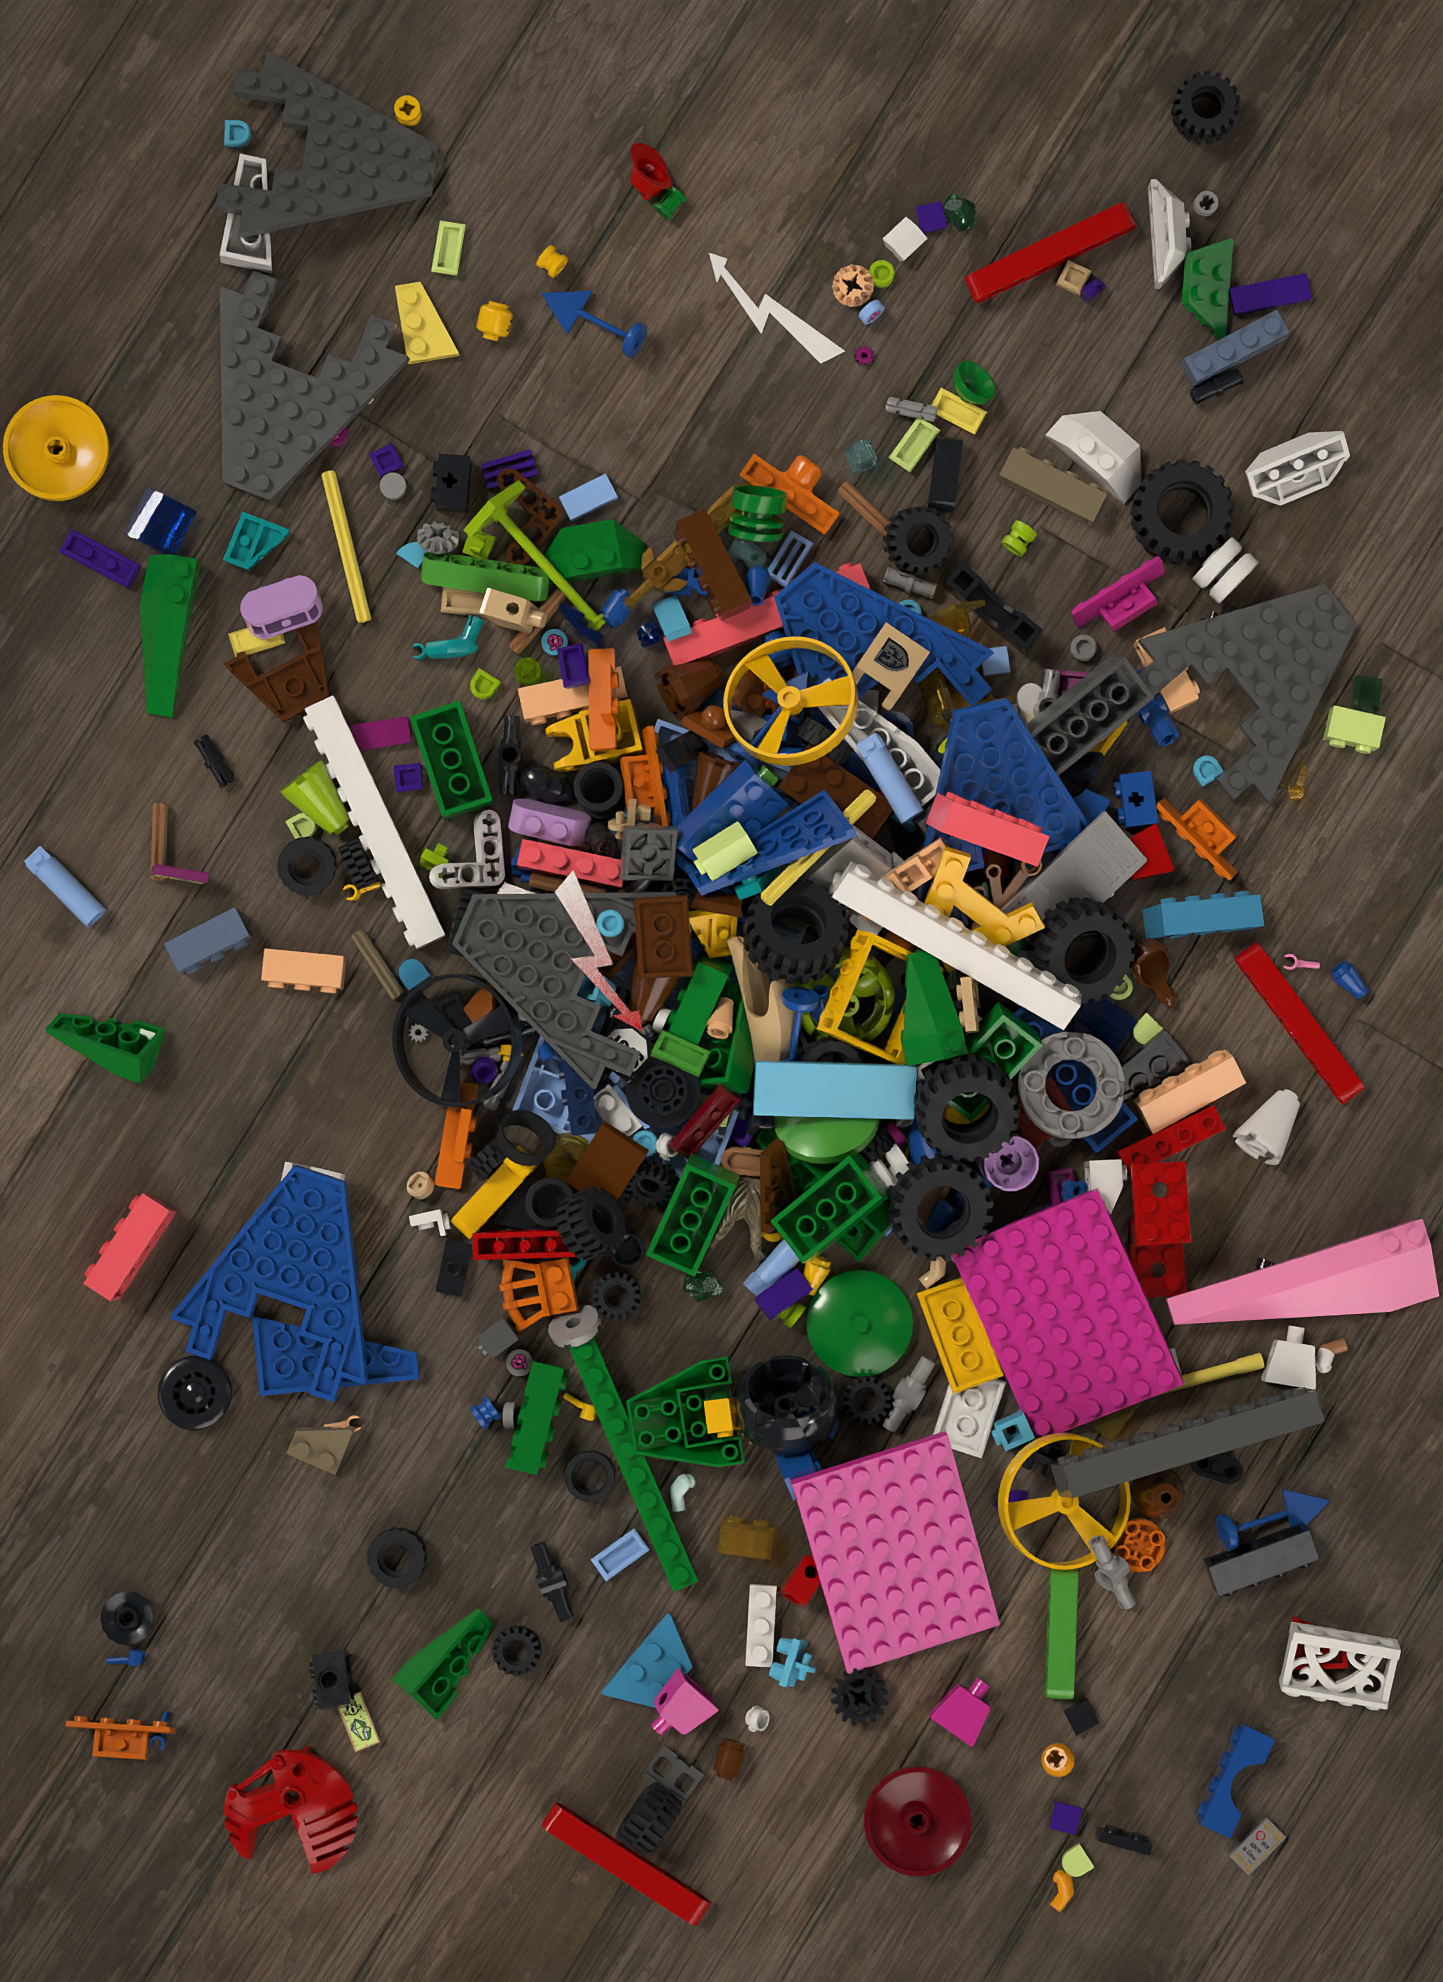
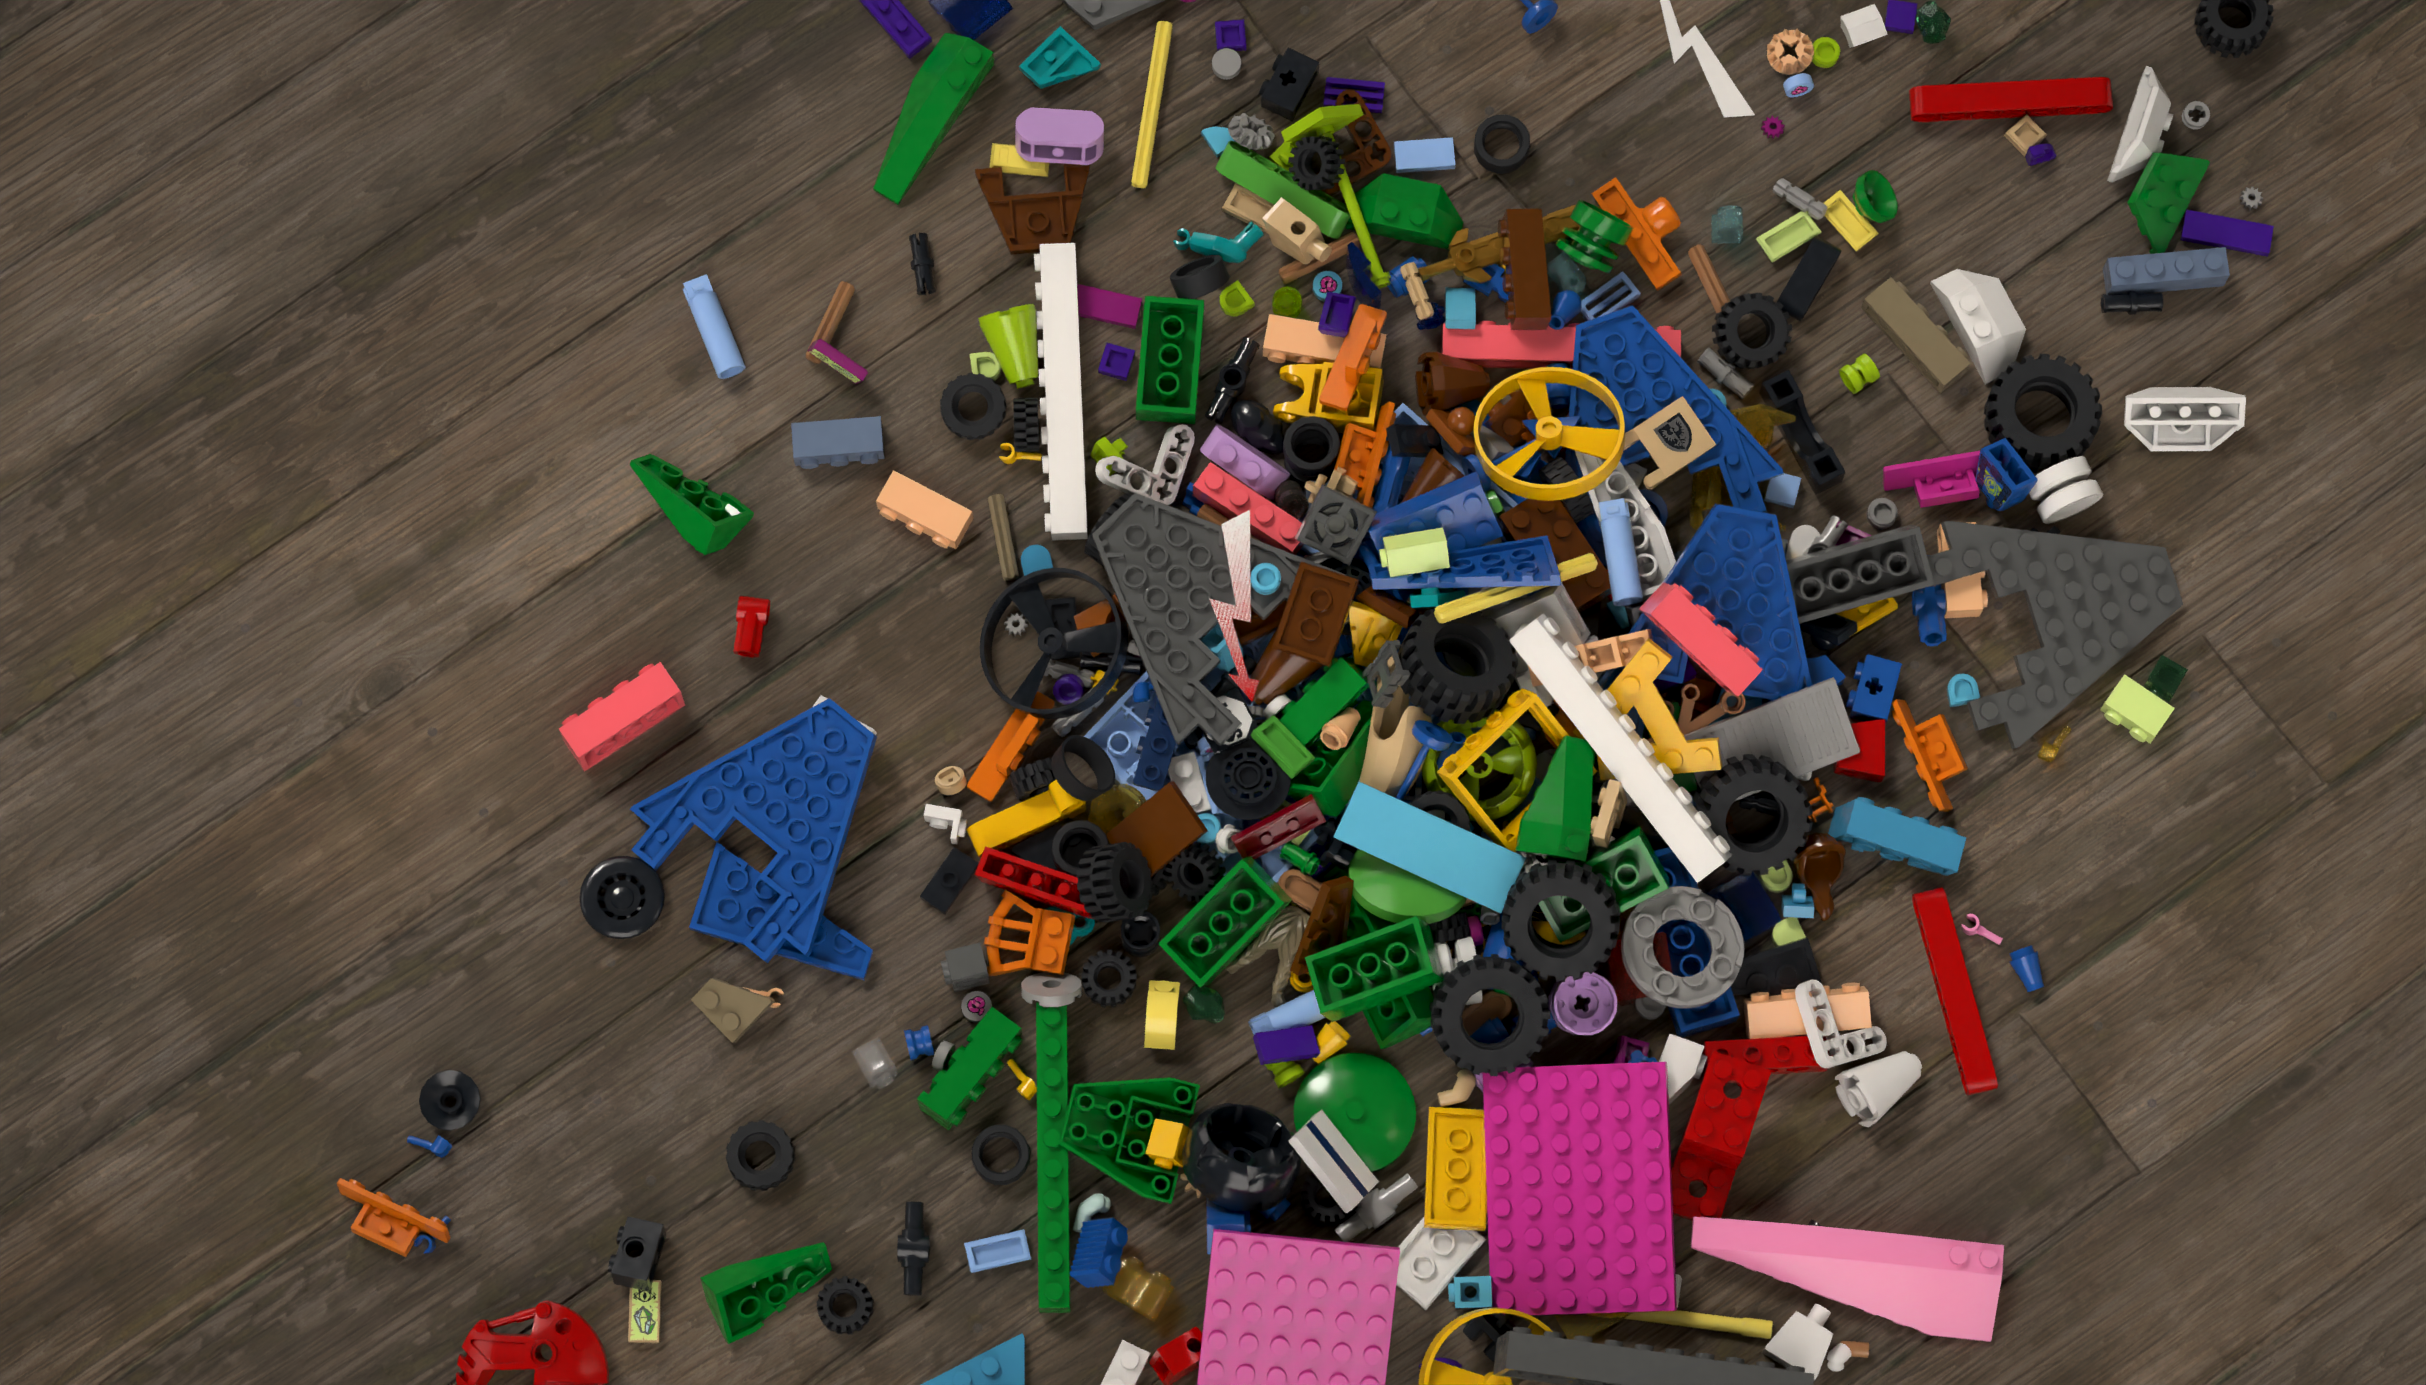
camera: 20 degrees right, 10 degrees down
(201, 1117) = (751, 618): none -> red piece
(447, 681) = (1199, 277): none -> black tyre
(458, 1444) = (875, 1063): none -> clear brick
(494, 552) = (1303, 163): none -> black tyre
(631, 620) = (1417, 291): none -> tan axle
(648, 442) = (1507, 122): none -> black tyre
(671, 1308) = (1161, 1014): none -> light yellow brick
(702, 1525) = (1099, 1252): none -> blue brick
(732, 1137) = (1300, 858): none -> green pin
(748, 970) = (1389, 681): none -> dark grey piece
(861, 1375) = (1333, 1161): none -> white tile
(1136, 912) = (1827, 806): none -> orange piece
(1145, 1004) = (1797, 904): none -> dark azure tile
(1172, 579) = (2003, 476): none -> blue torso
(1224, 1109) = (1835, 1043): none -> white beam
(1281, 252) = (2251, 203): none -> light grey piece

